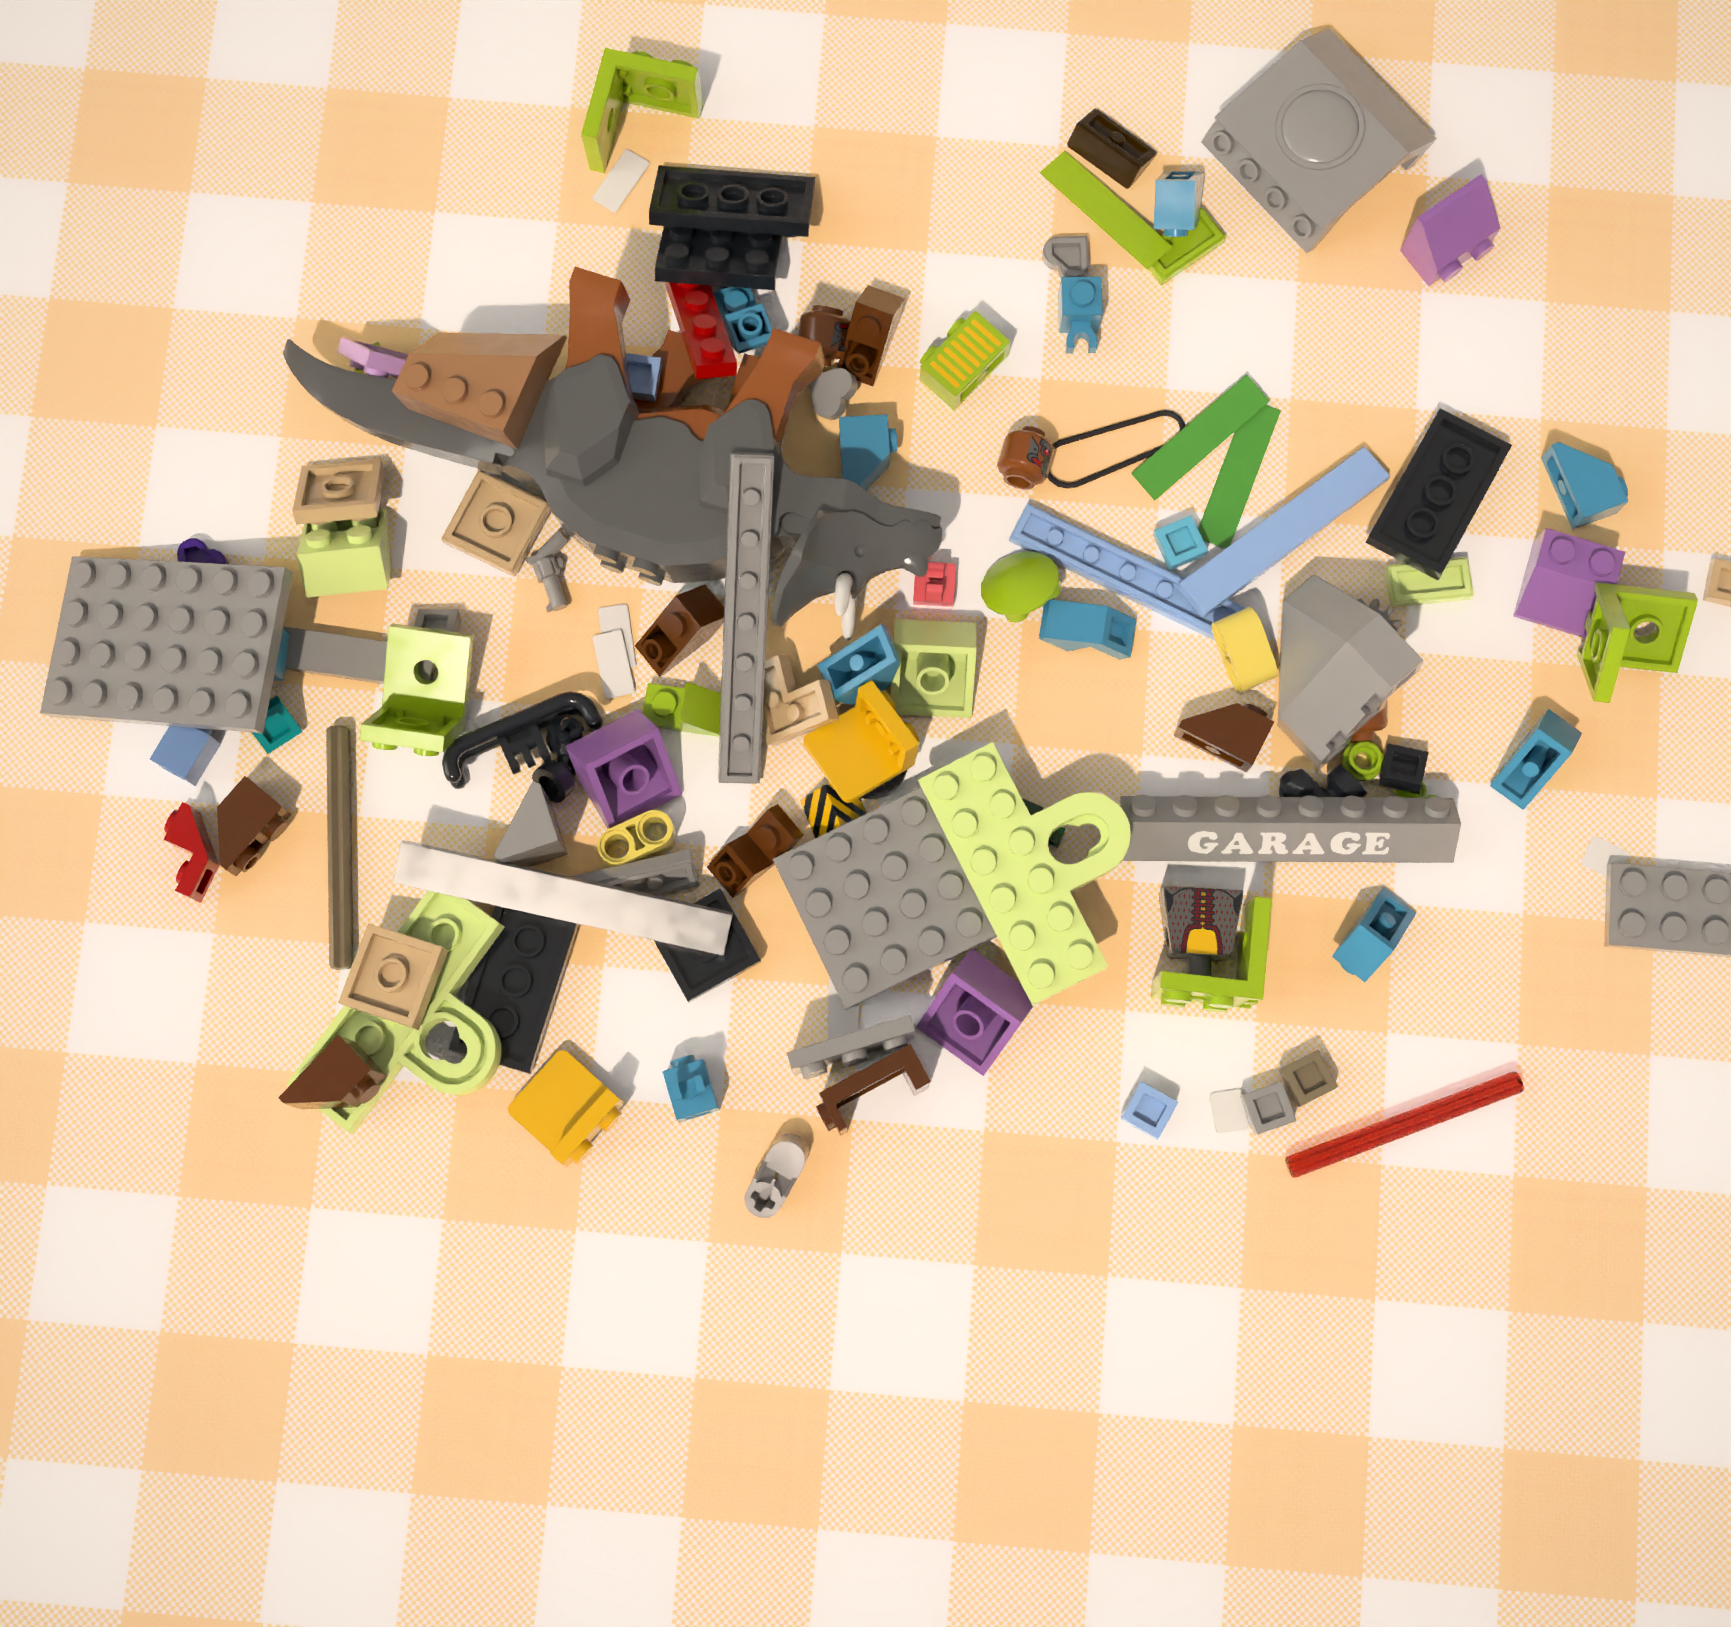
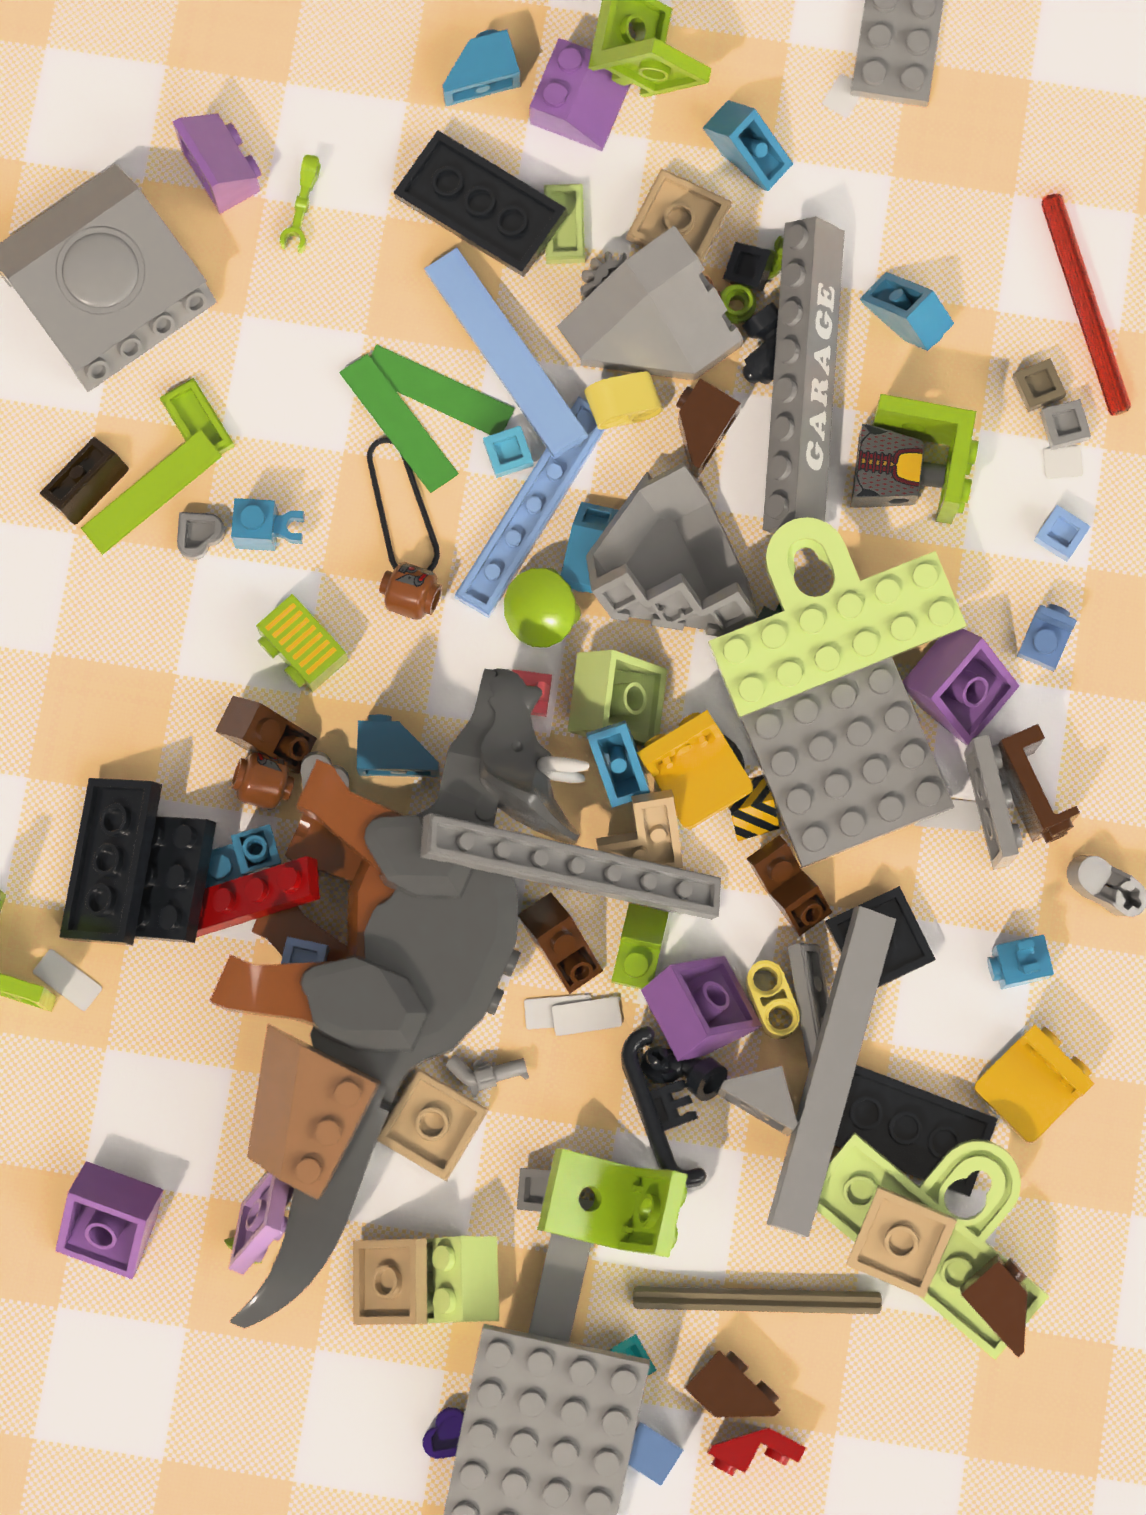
camera: 85 degrees left, 0 degrees up
(392, 233) = (108, 1219): none -> medium lavender slope
(1036, 1100) = (1047, 636): none -> medium blue bracket
(1078, 704) = (670, 560): none -> light grey panel
(1178, 201) = (155, 417): dark azure slope -> none
(1446, 696) = (680, 204): none -> tan plate
(1451, 328) = (308, 176): none -> lime piece

